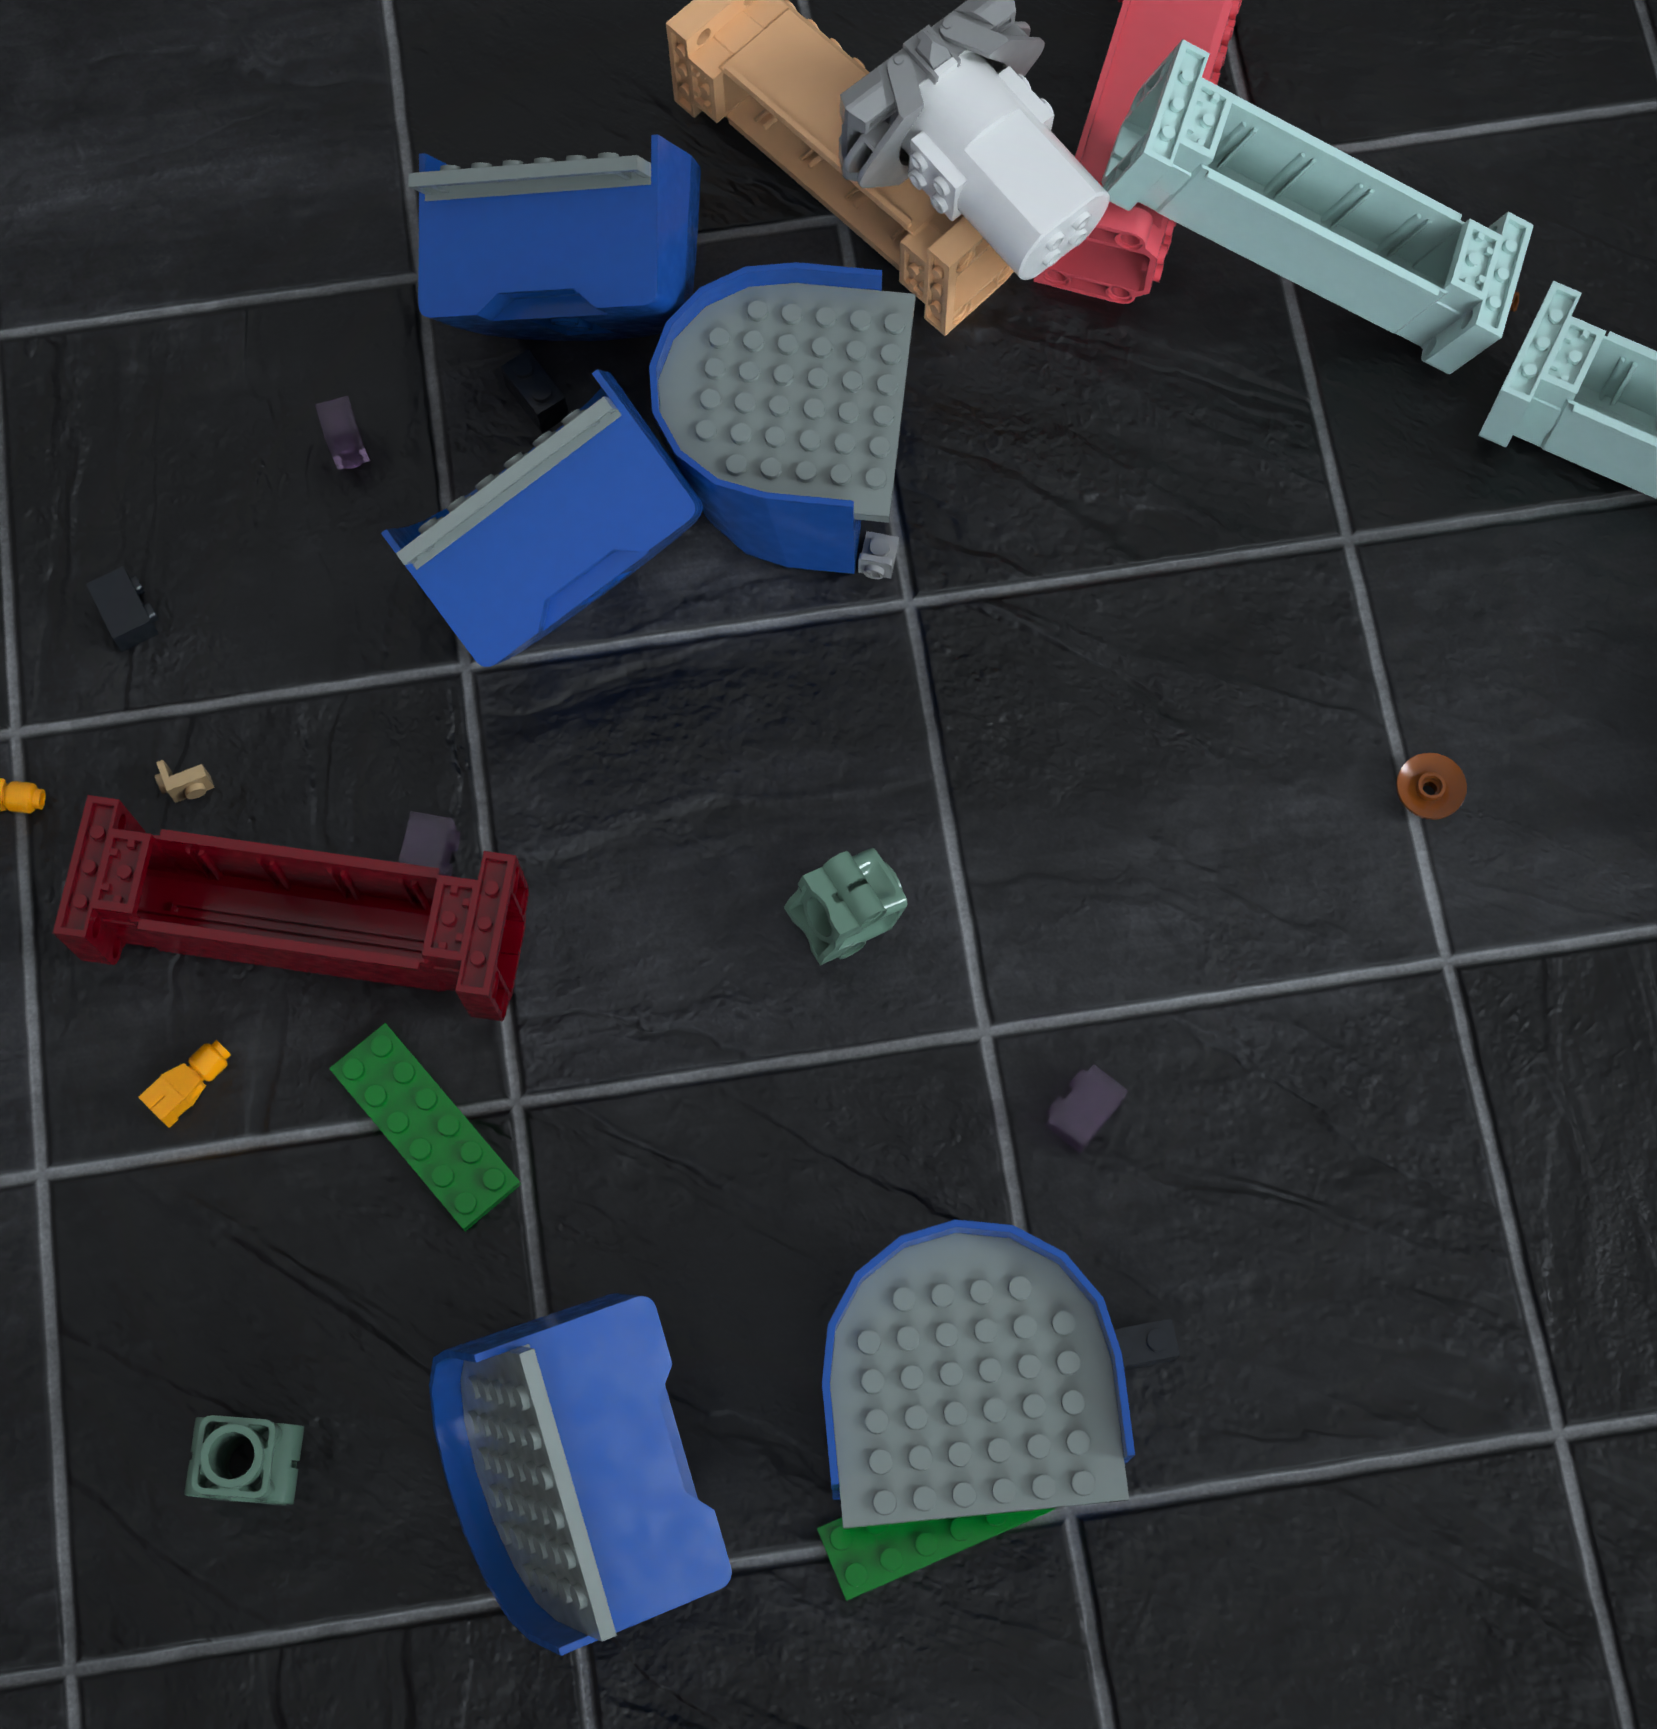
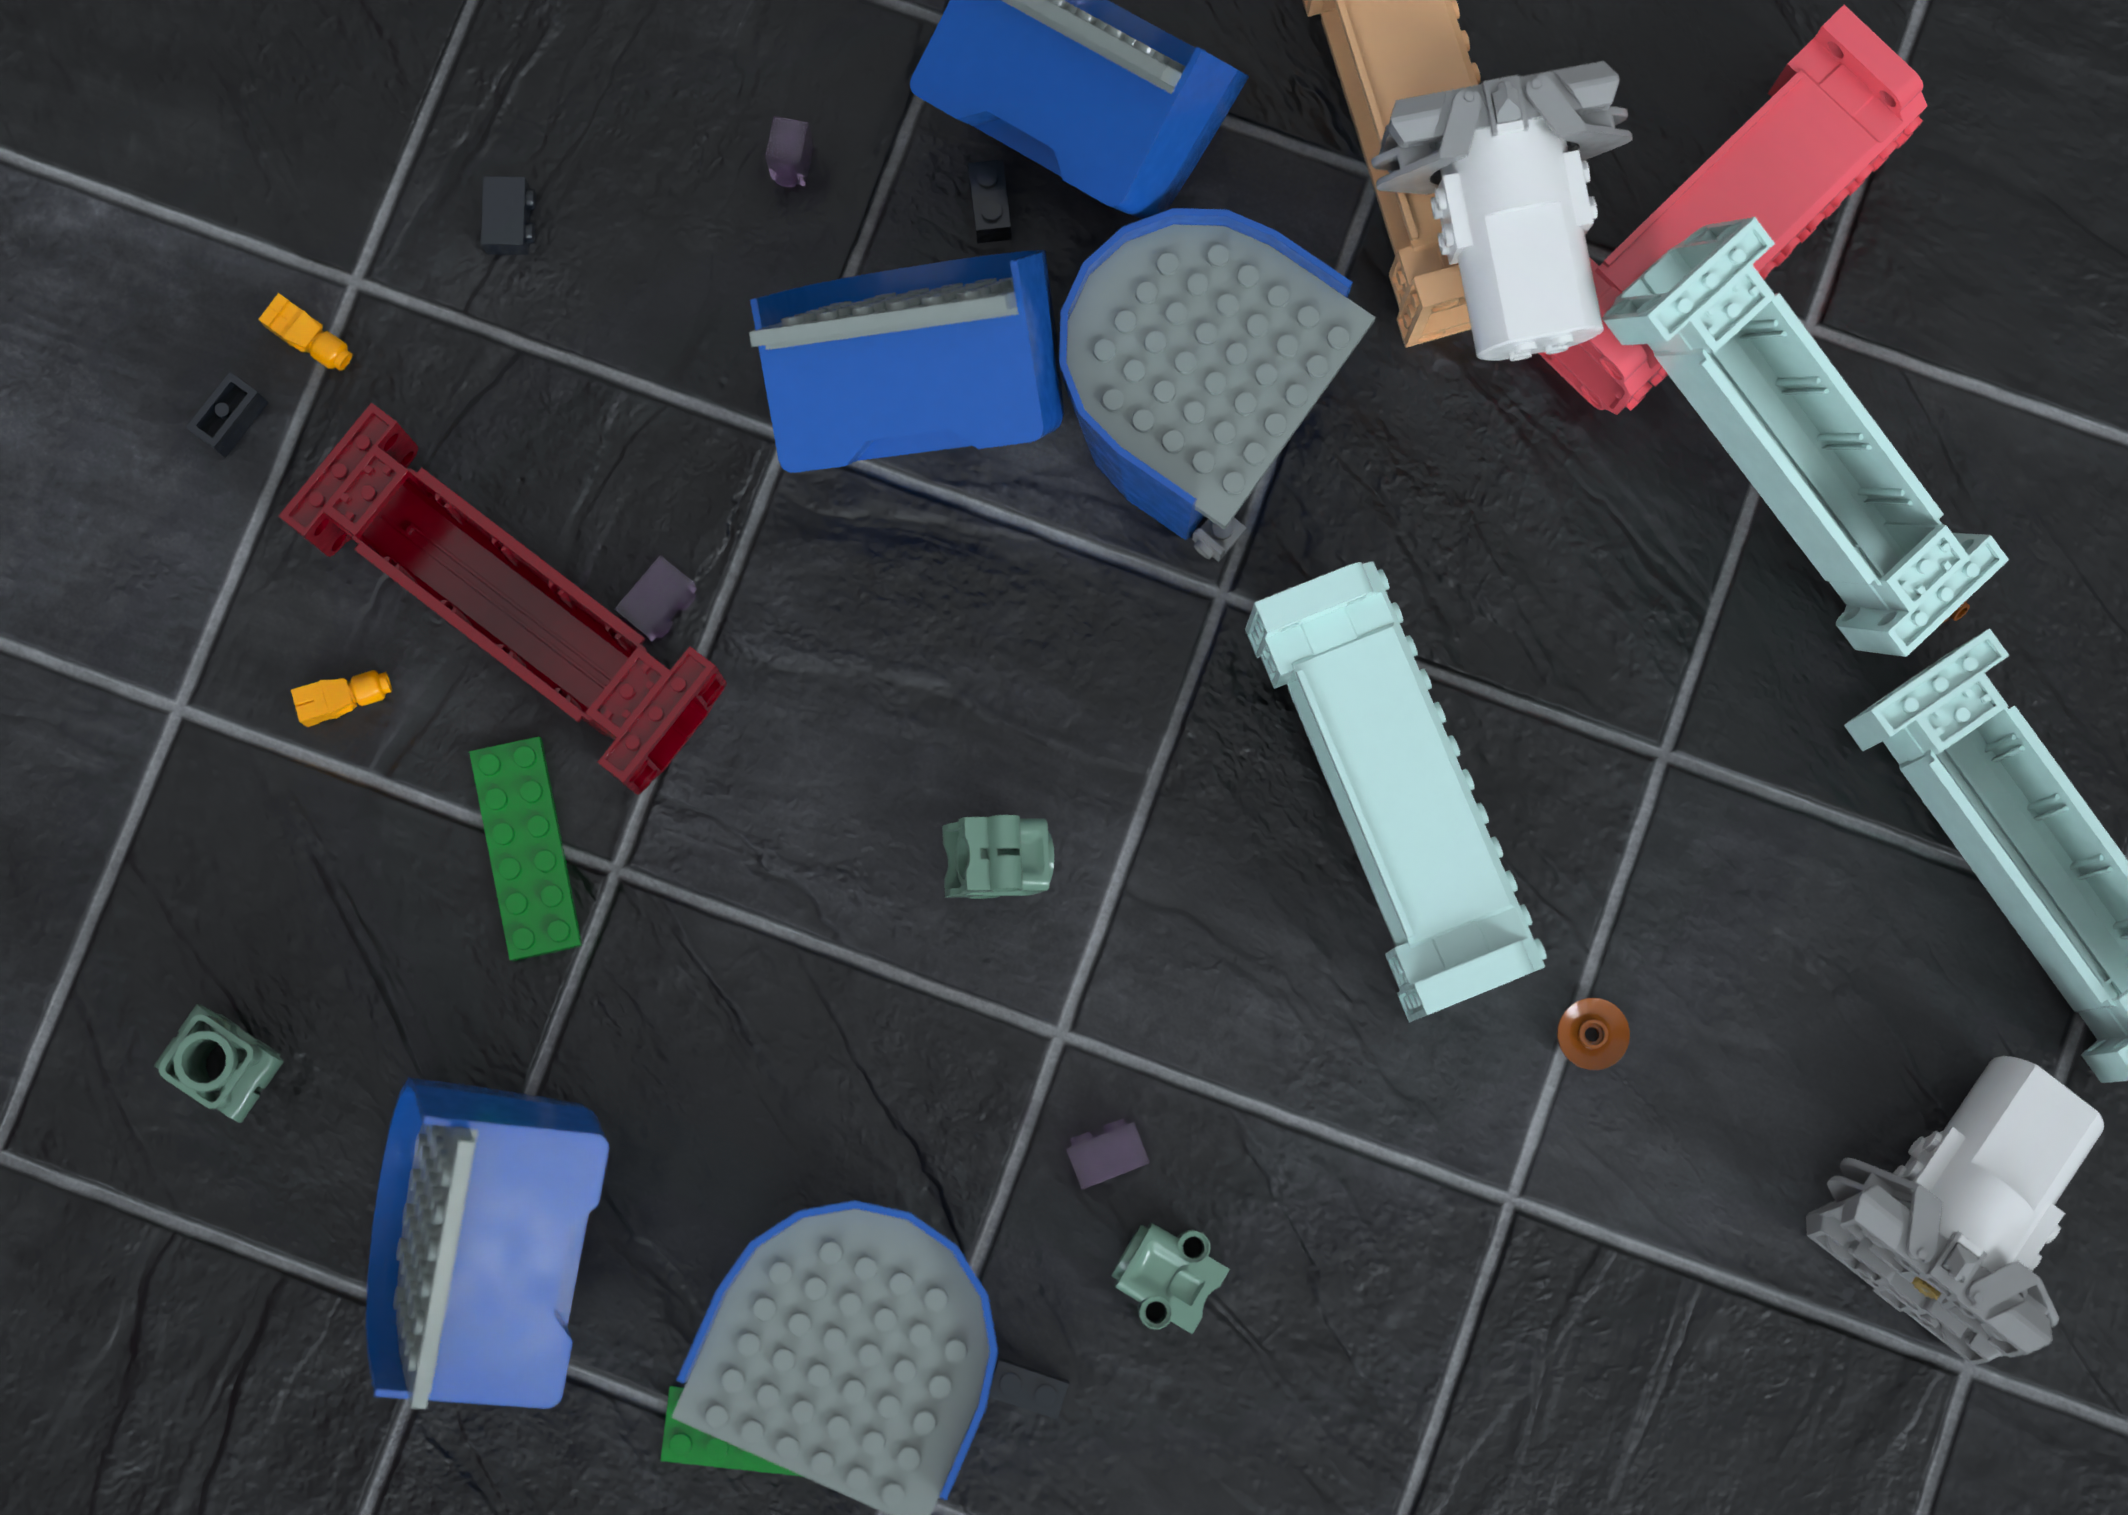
camera: 25 degrees right, 10 degrees up
(185, 784) = (480, 419): tan bracket -> none
(1152, 666) = (1397, 787): none -> light aqua brick
(1199, 1177) = (1160, 1271): none -> sand green piece

